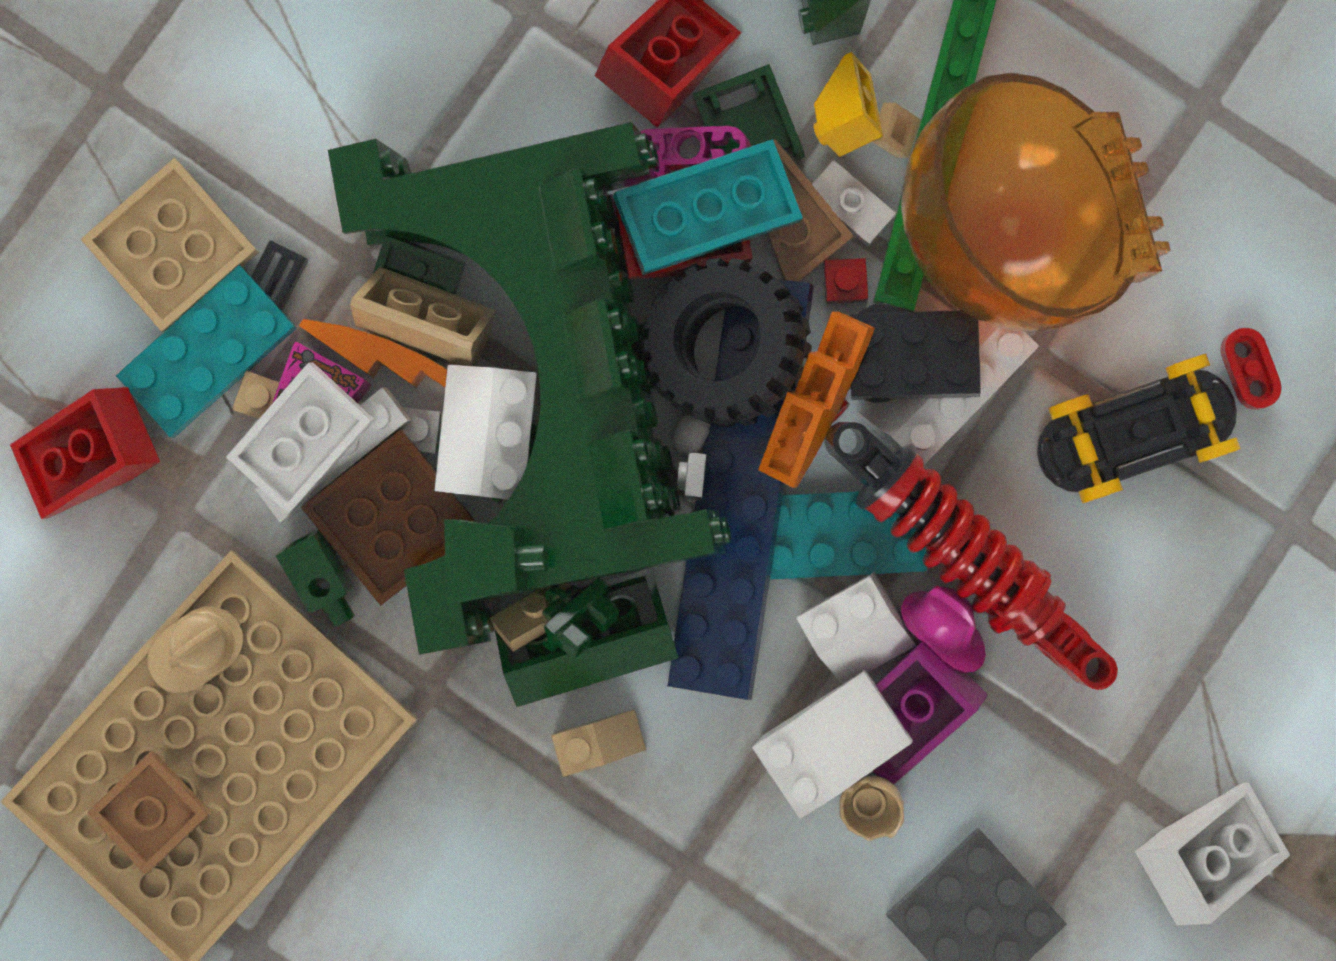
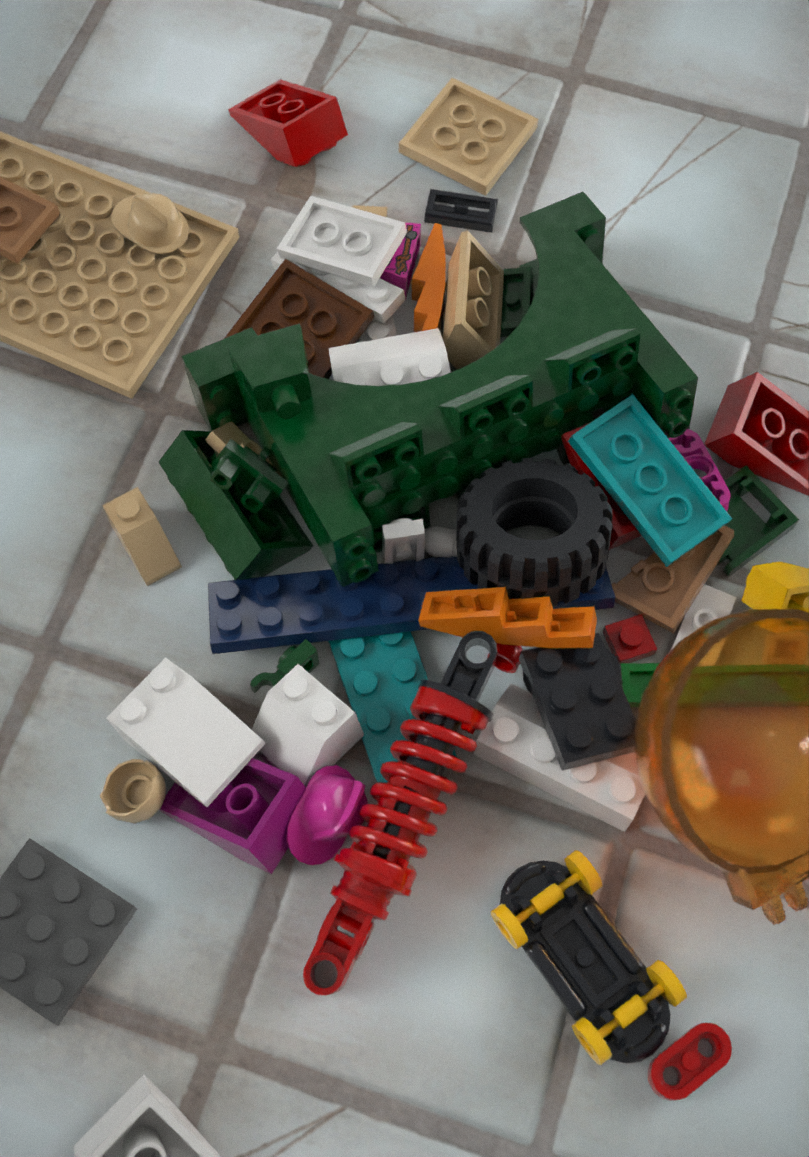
camera: 70 degrees right, 20 degrees down
(206, 351) = (394, 179): teal plate -> none
(312, 559) = (231, 284): dark green torso -> none
(783, 620) = (305, 655): none -> dark green plate

